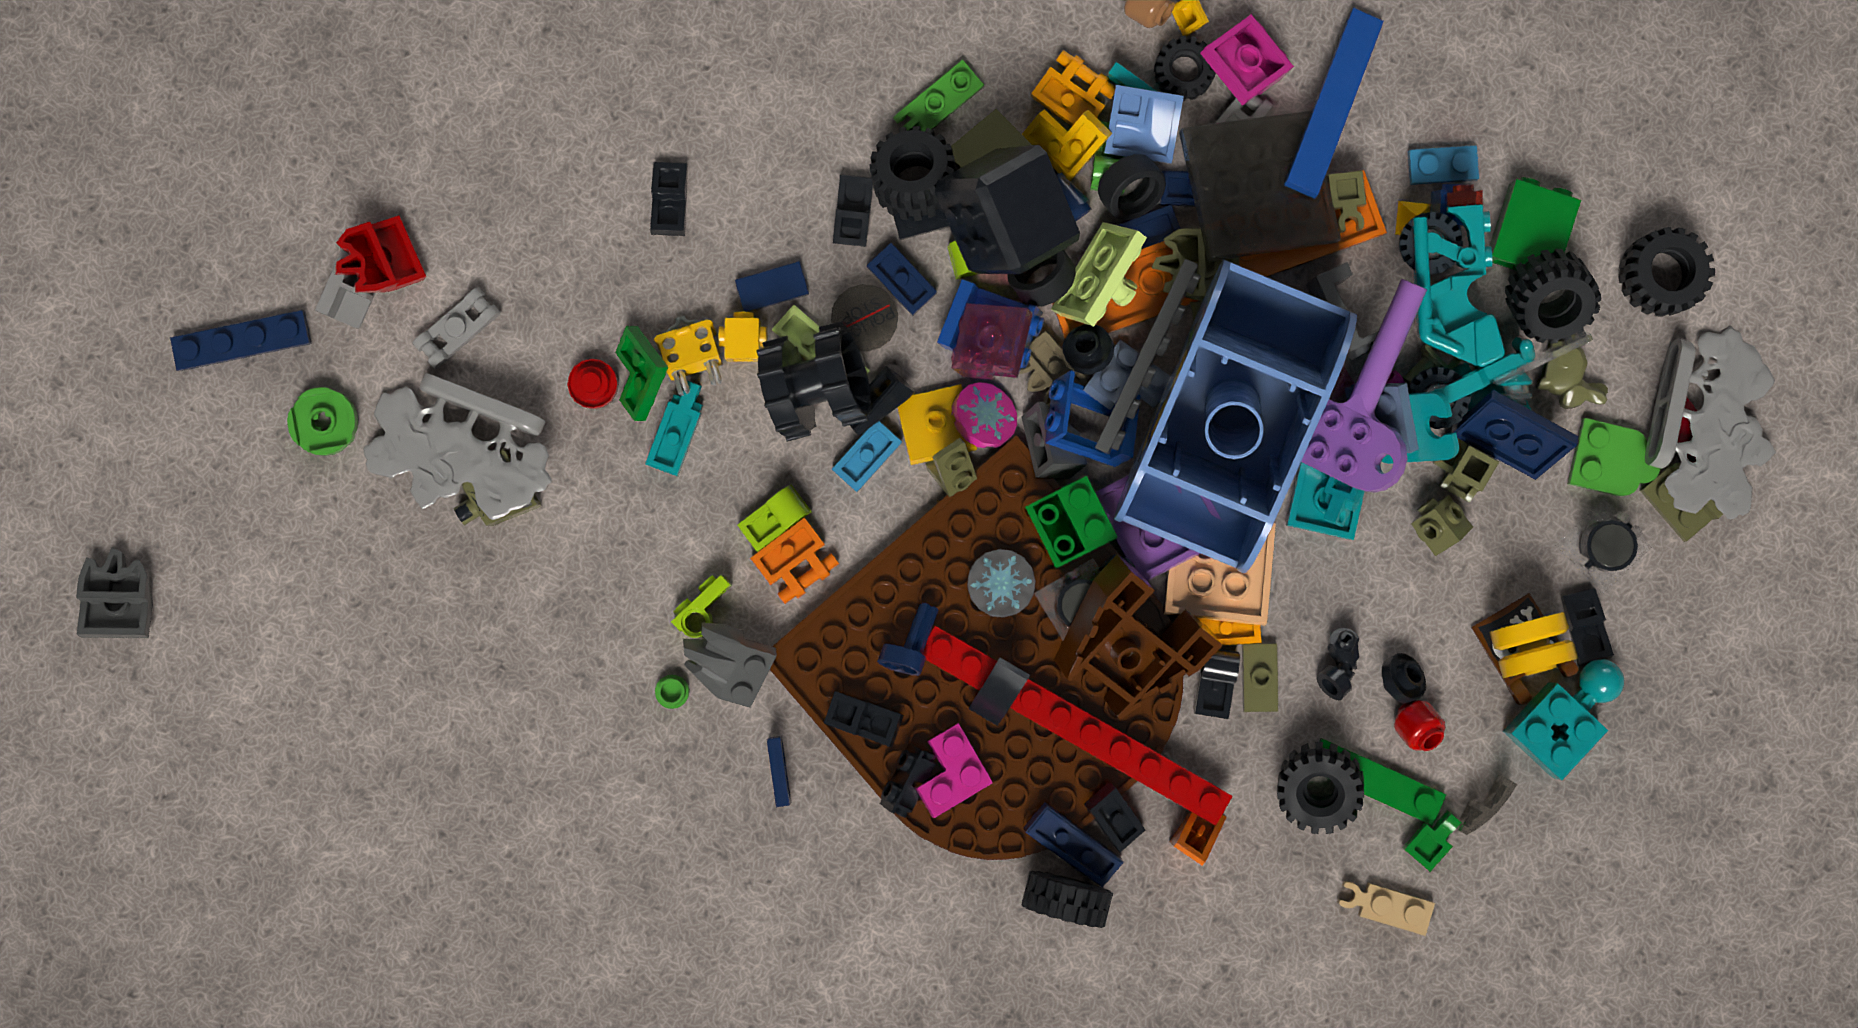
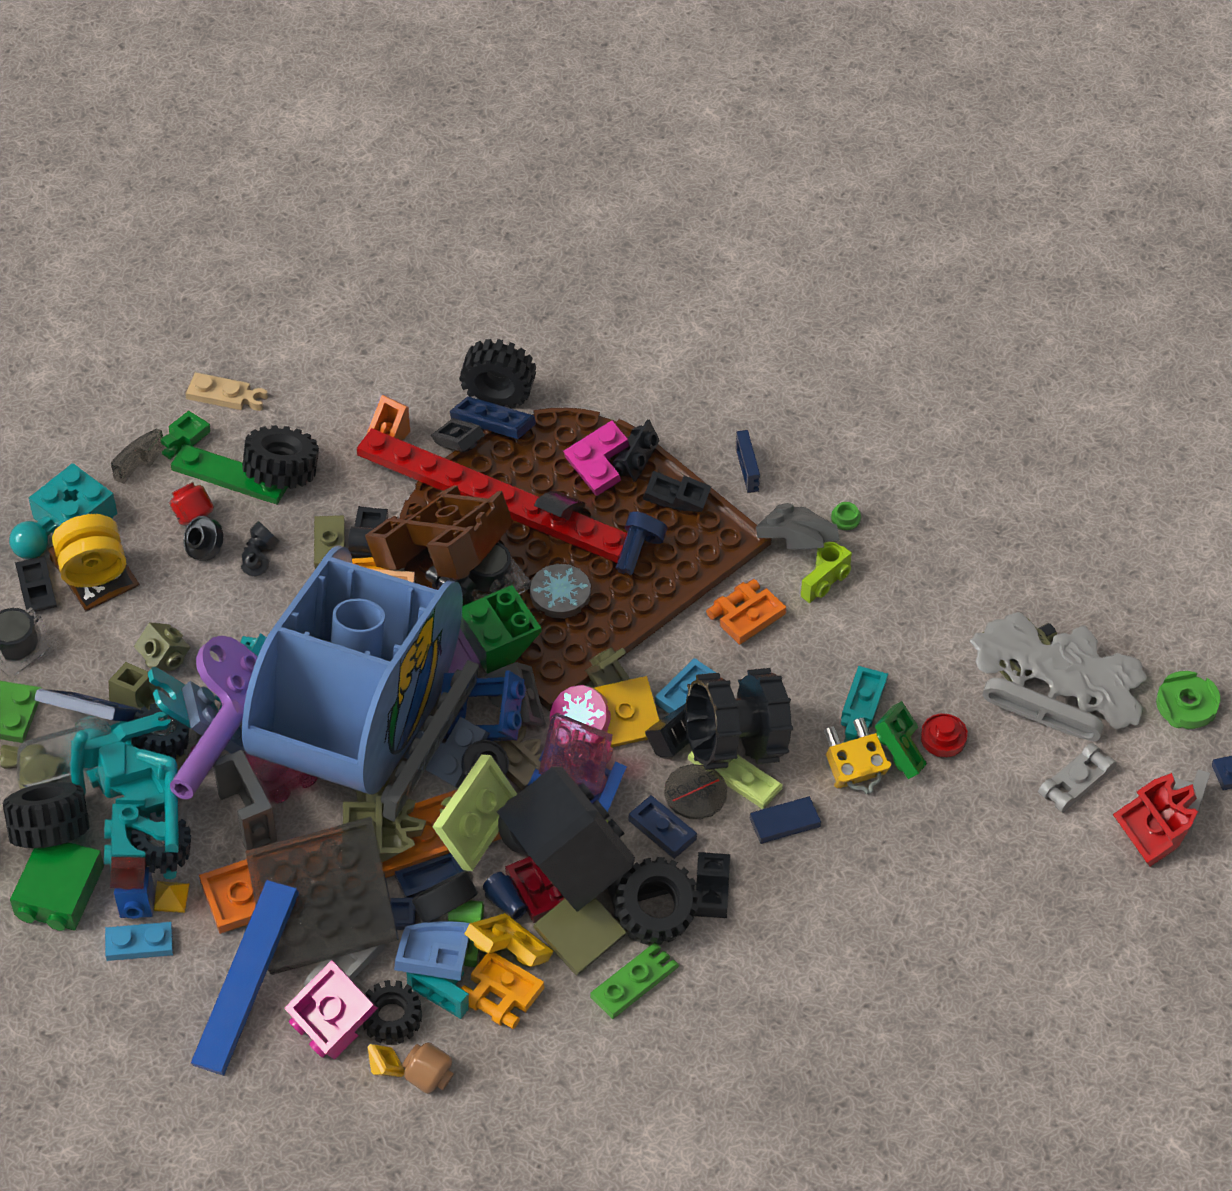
camera: 175 degrees right, 35 degrees down
(669, 198) = (890, 888): black slope -> none
(742, 337) = (808, 772): yellow brick -> none
(774, 517) = (762, 642): lime plate -> none
(1348, 194) = (236, 894): olive plate -> none

